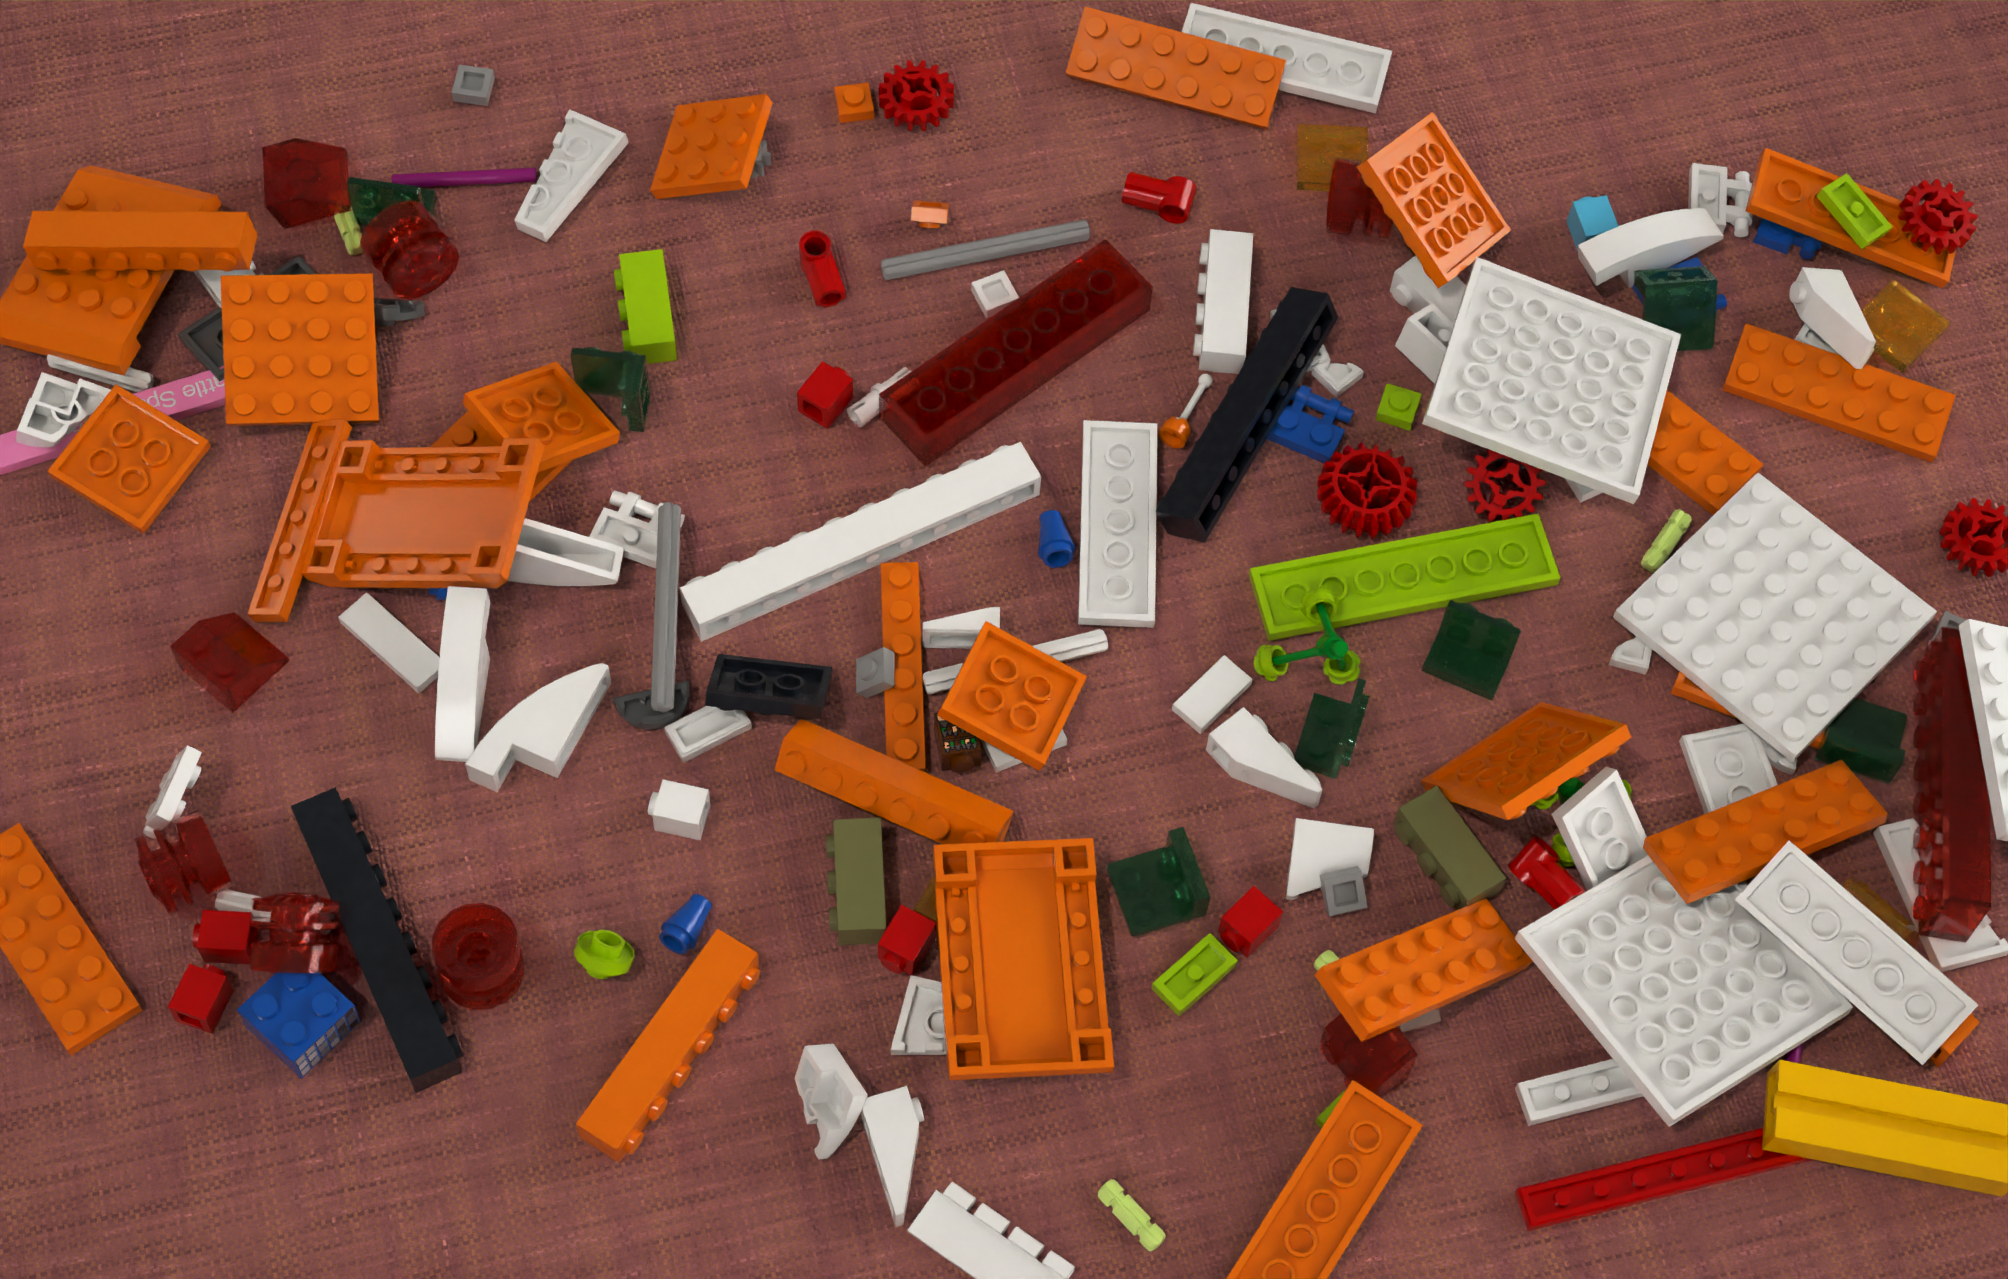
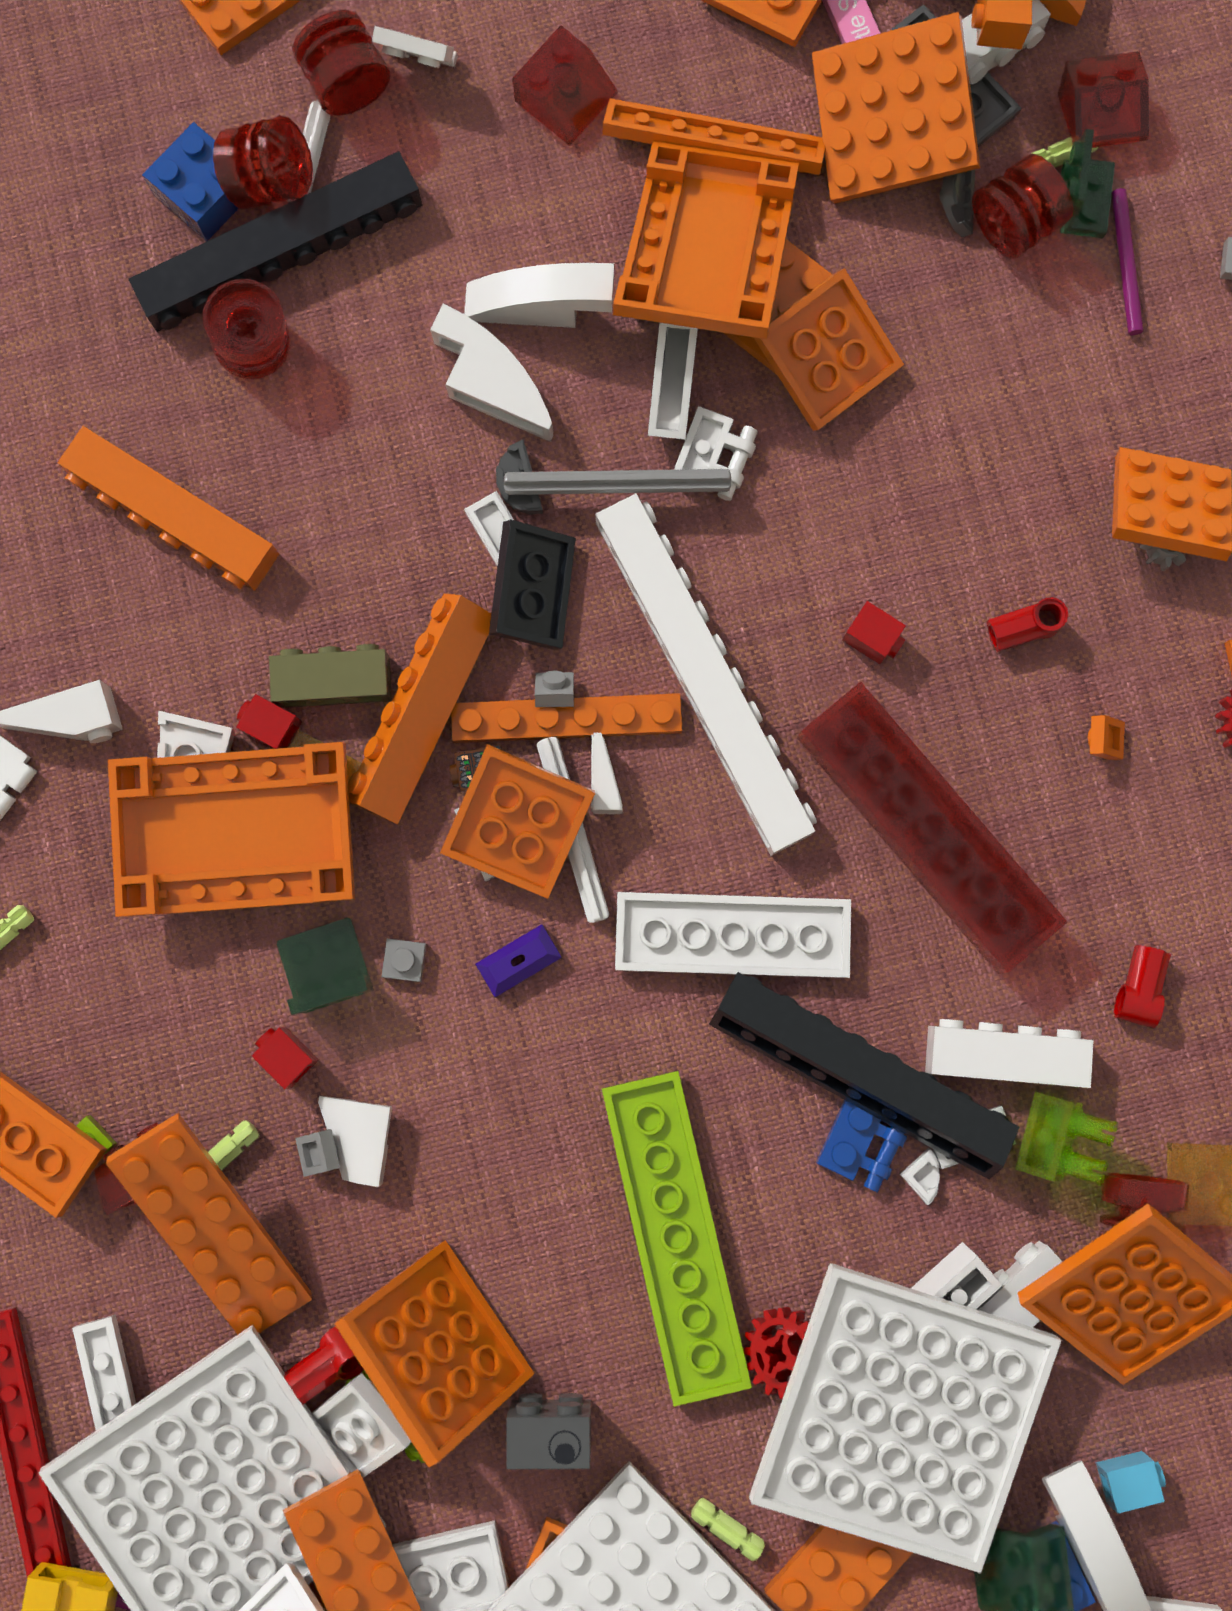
camera: 95 degrees right, 20 degrees up
(201, 997) = (220, 97): red brick -> none
(224, 936) = (279, 99): red brick -> none
(391, 642) = (590, 228): white tile -> none
(575, 165) = (1149, 371): white wing -> none
(603, 953) = (257, 444): lime plate -> none
(616, 376) = (860, 437): clear green bracket -> none
(646, 306) = (973, 449): lime brick -> none
(680, 809) = (405, 508): white brick -> none
(684, 927) = (287, 518): blue cone -> none
(829, 1095) = (116, 654): white slope -> none
(868, 407) = (860, 672): white pin -> none
(985, 249) = (1066, 799): light grey axle -> none
(994, 293) = (1007, 807): white plate -> none
(1055, 543) = (711, 868): blue cone -> none
(1148, 817) = (404, 960): none -> light grey plate
(1154, 728) = (538, 954): none -> dark purple piece
(1177, 430) = (848, 999): orange hinge -> none
(1194, 974) = (233, 1001): lime plate -> none
(1212, 694) = (539, 1028): white tile -> none
(1256, 758) = (464, 1066): white slope -> none
(1296, 266) = (1050, 1136): none -> clear neon green brick
(1331, 732) = (492, 1148): clear green bracket -> none
(1340, 663) = (568, 1153): lime plant -> none
(1390, 490) = (774, 1220): red gear -> none
(1398, 406) = (887, 1241): lime plate -> none
(1447, 850) = (359, 1262): olive brick -> none
(1471, 649) = (579, 1299): clear green bracket -> none
(1593, 670) = (549, 1432): none -> dark grey brick
(1632, 656) = (591, 1481): white tile -> none

